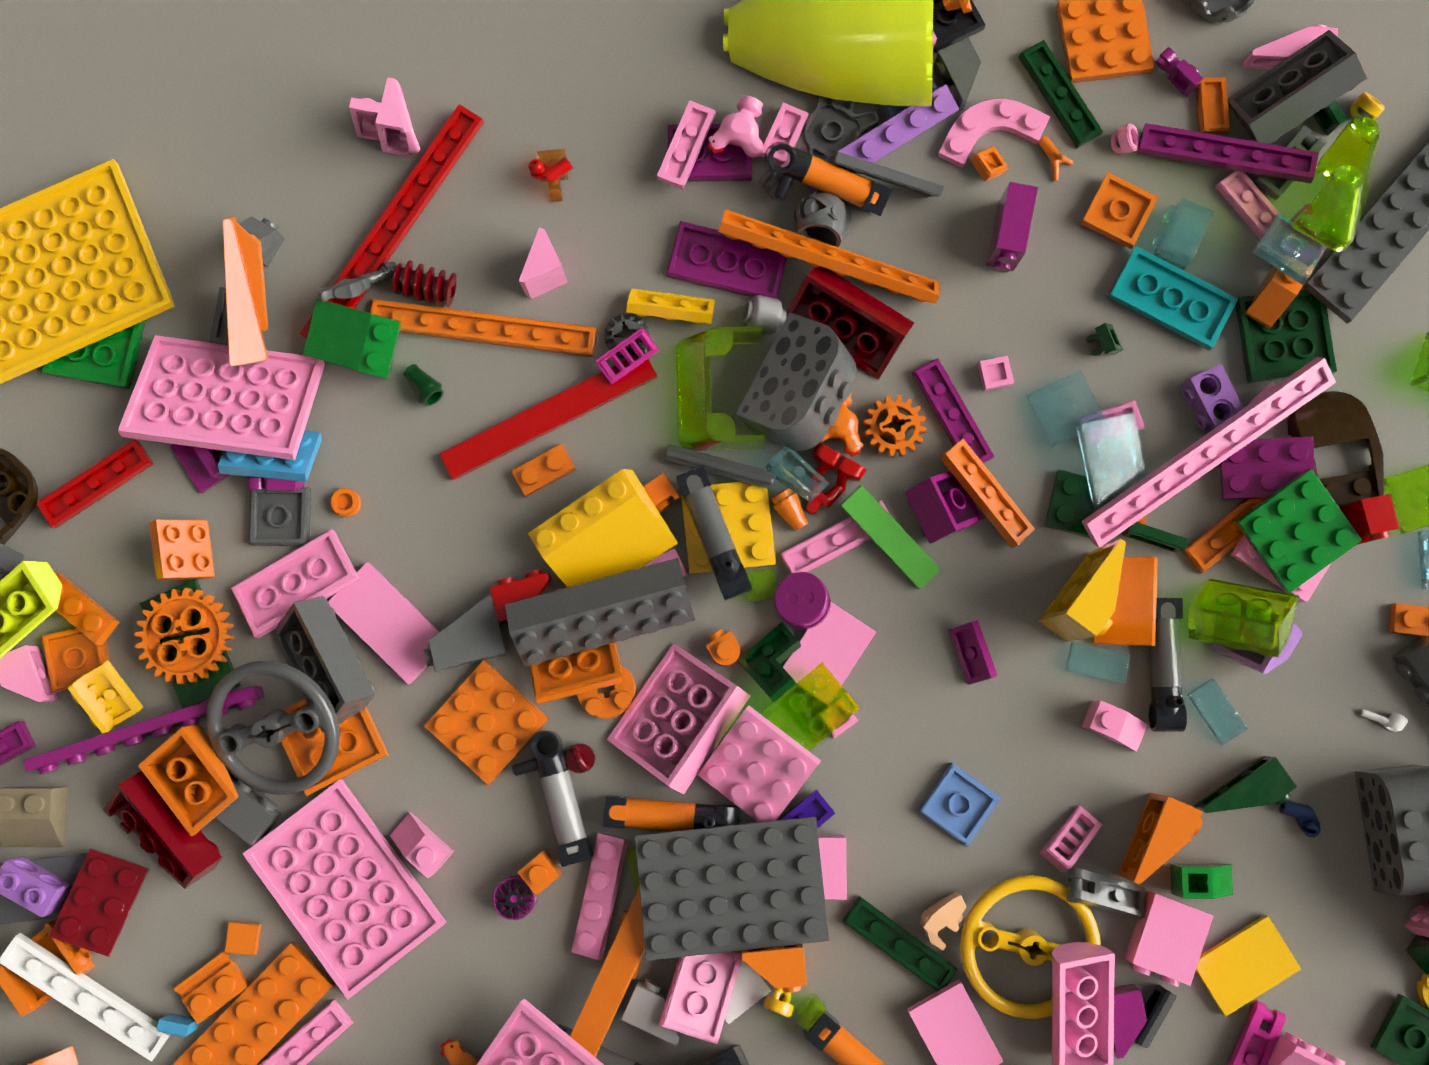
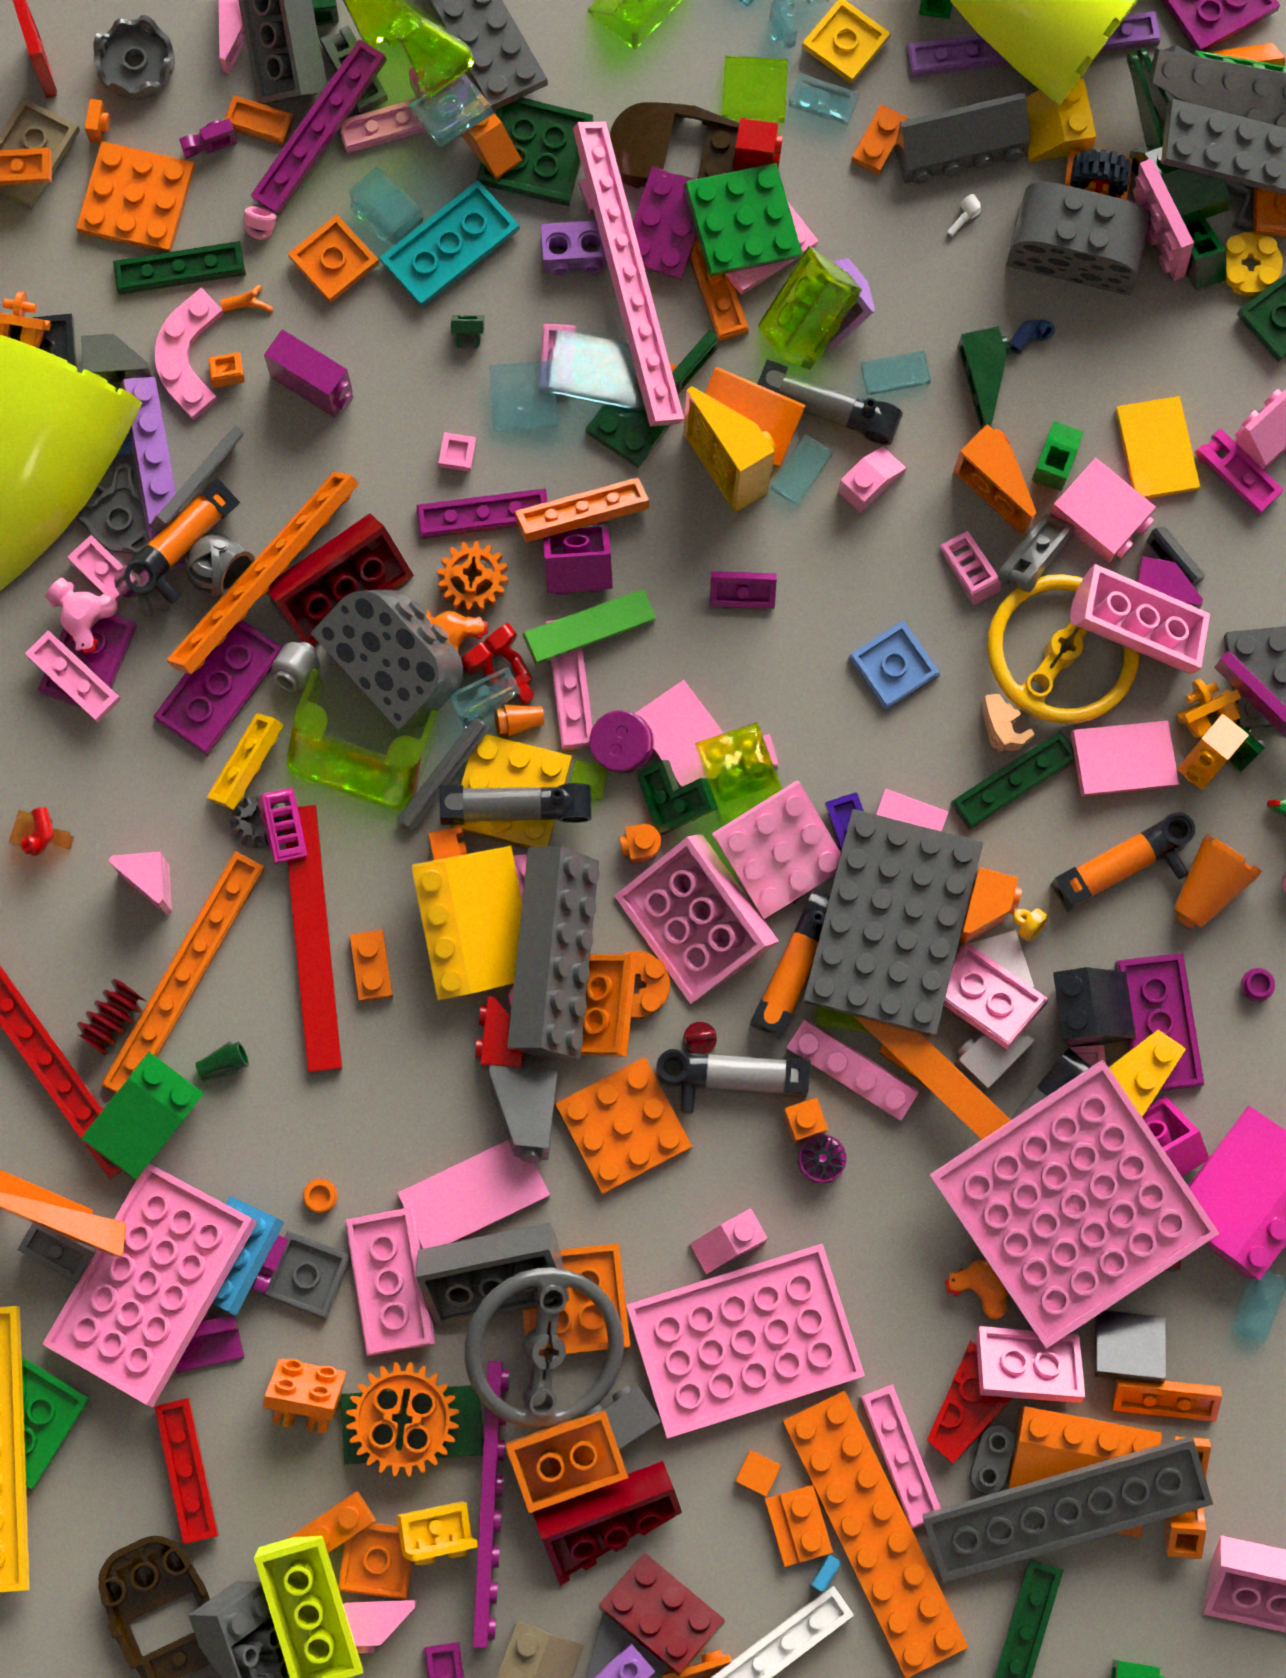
camera: 75 degrees left, 5 degrees down
(353, 287) = (84, 1092): dark grey piece -> none
(810, 1011) = (1049, 894): clear neon green plate -> none

